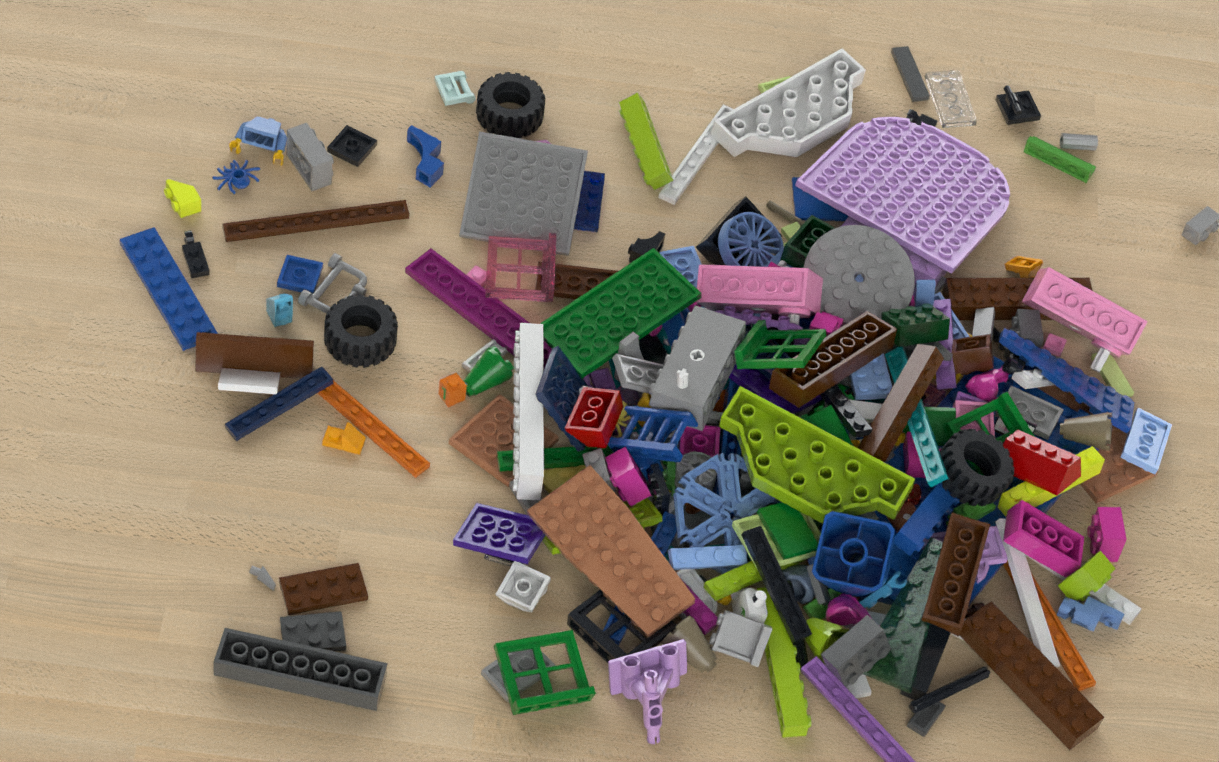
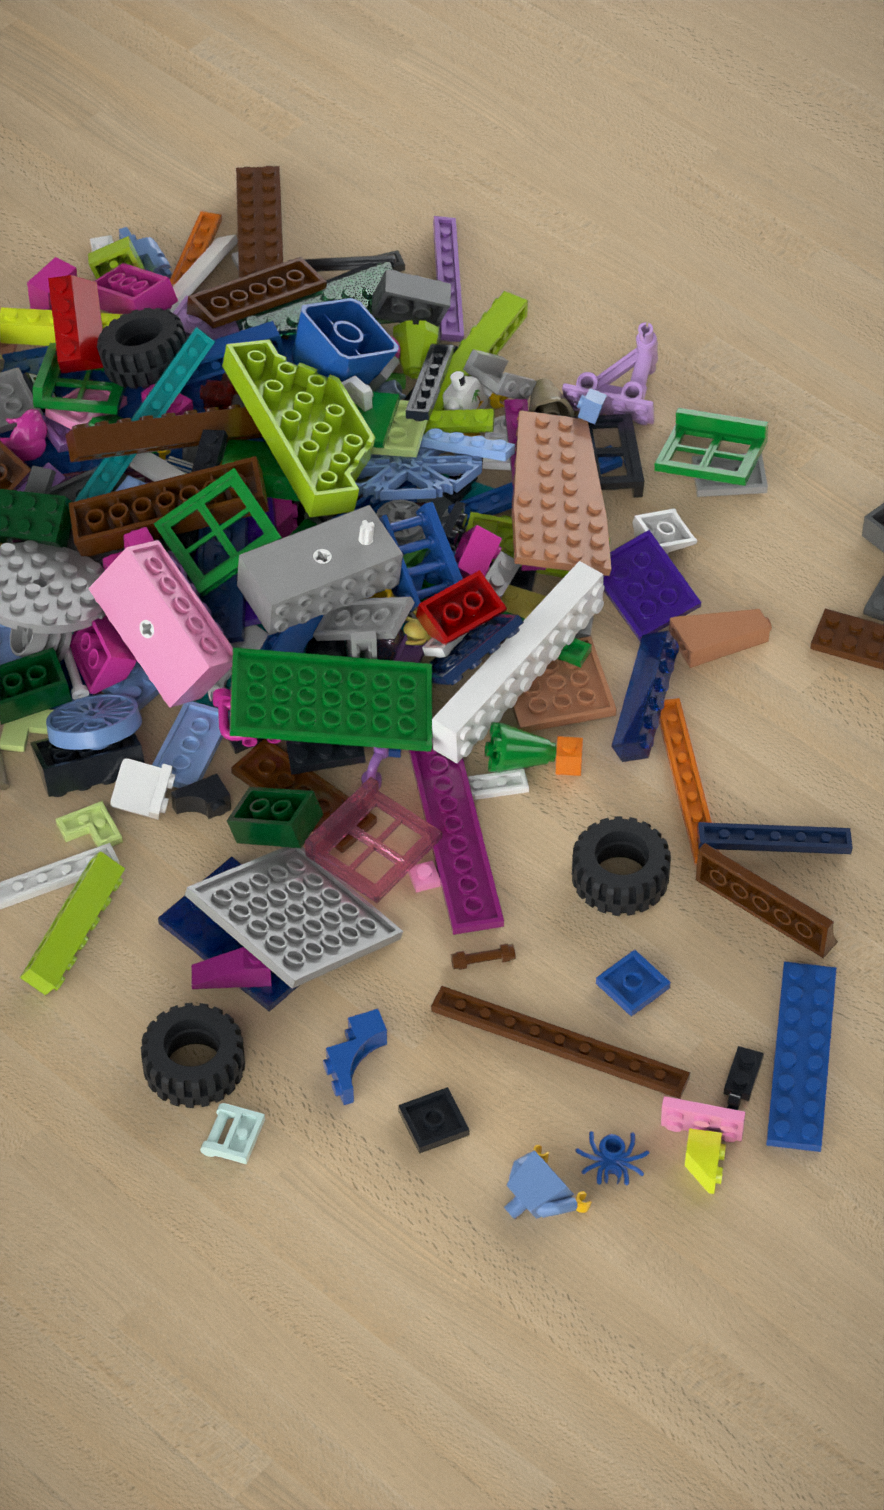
camera: 135 degrees left, 0 degrees up
(196, 207) = (685, 1114): none -> bright pink plate
(249, 381) = (794, 874): white tile -> none
(280, 309) = (693, 941): medium azure slope -> none
(309, 156) = (506, 1114): light grey brick -> none
(337, 265) = (601, 921): light grey bar -> none
(344, 439) = (728, 774): light orange slope -> none
(391, 255) = (505, 952): none -> reddish brown bar
(426, 530) = (718, 634): none -> nougat slope
(437, 455) = (645, 696): none -> clear blue brick
(589, 245) = (275, 817): none -> dark green brick
(651, 637) = (591, 405): none -> medium blue plate
(684, 233) = (142, 788): none -> white bracket
(697, 212) = (93, 820): none -> yellowish green tile
(808, 531) = (359, 392): none -> white bracket

